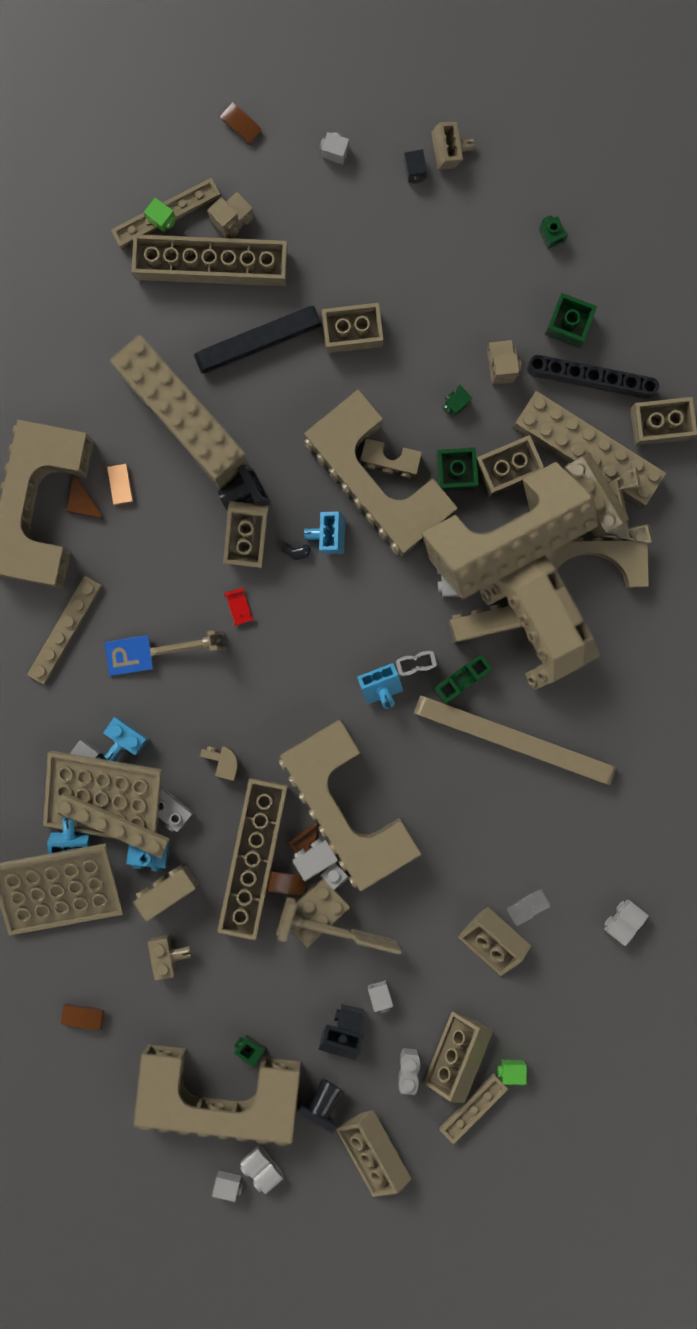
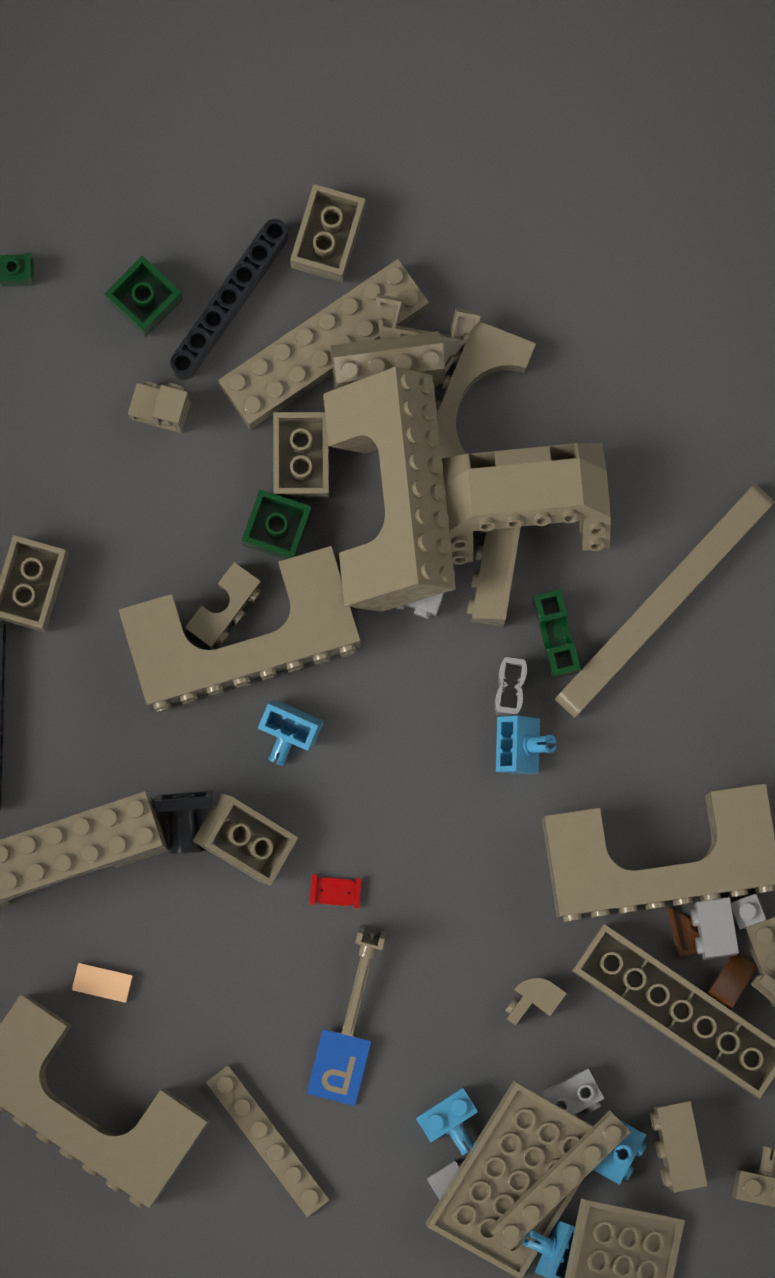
camera: 70 degrees left, 5 degrees down
(81, 502) = (103, 1046): reddish brown tile -> none
(297, 553) = (297, 782): black arm -> none
(456, 401) = (185, 489): dark green brick -> none

